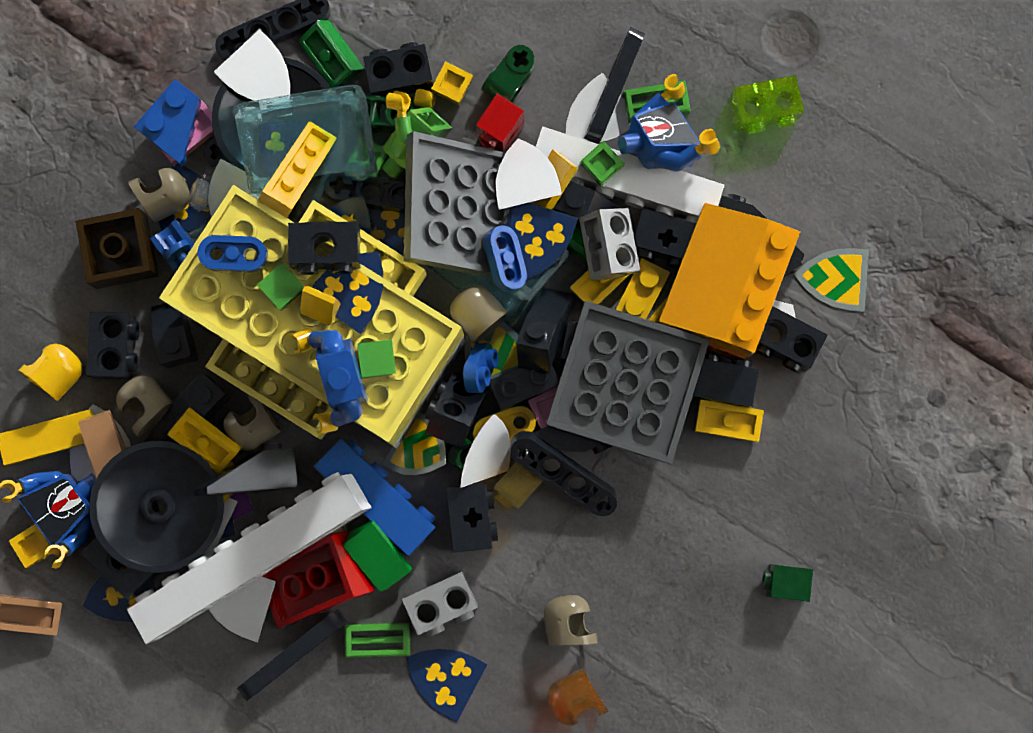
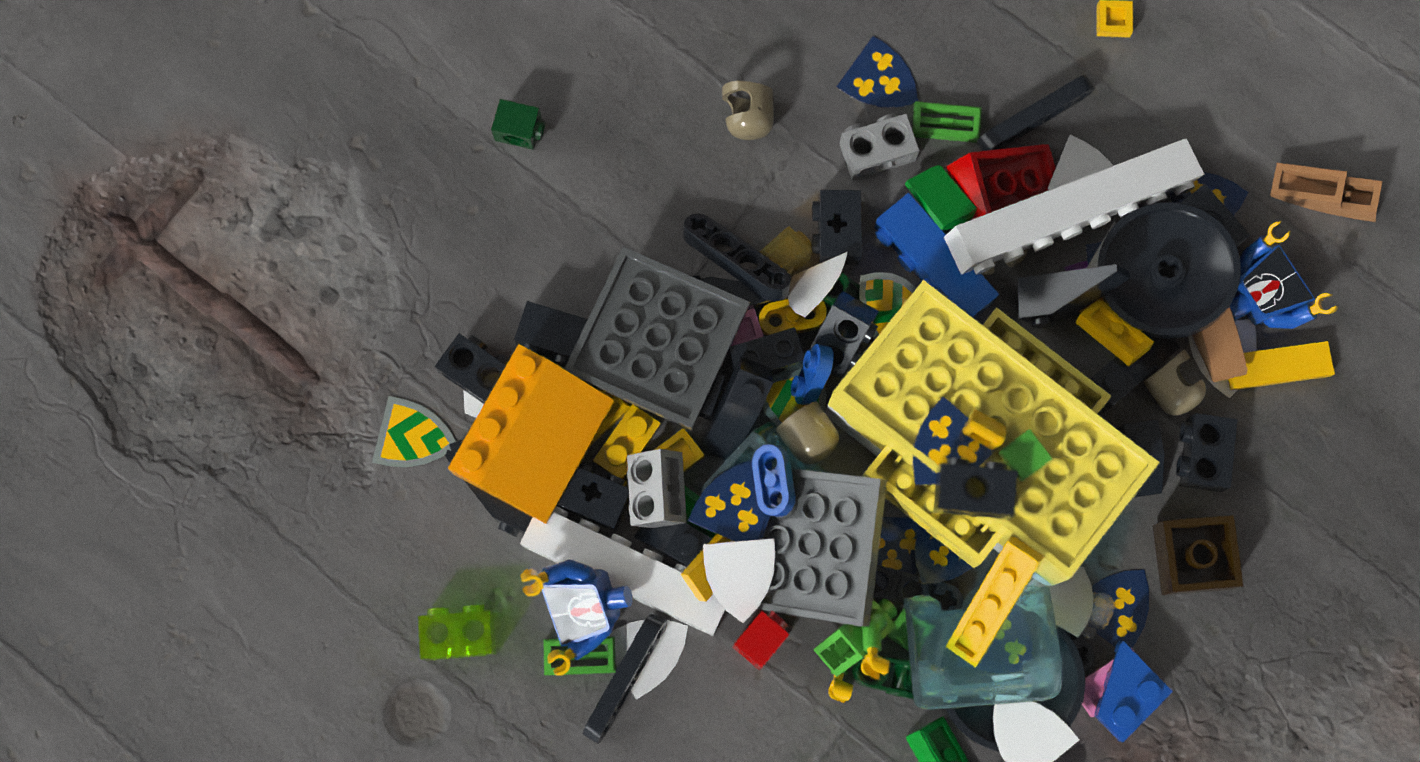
camera: 175 degrees left, 5 degrees down
(30, 546) = (1303, 253): yellow plate -> none
(54, 370) = (1271, 429): yellow helmet -> none
(165, 198) = (1139, 611): dark tan helmet -> none
(173, 244) = (1129, 546): blue hips -> none
(234, 253) = (1075, 495): blue plate -> none
(252, 427) = (1068, 342): dark tan helmet -> none
(338, 374) = (973, 349): blue torso -> none
(376, 359) = (928, 365): bright green tile -> none
(399, 78) = (867, 715): black brick -> none
(452, 83) = (807, 703): yellow plate -> none
(507, 78) = (745, 698): dark green piece -> none
(572, 696) = (754, 43): clear orange helmet -> none
(602, 163) = (652, 581): bright green tile -> none
(729, 421) = (553, 292): yellow plate -> none

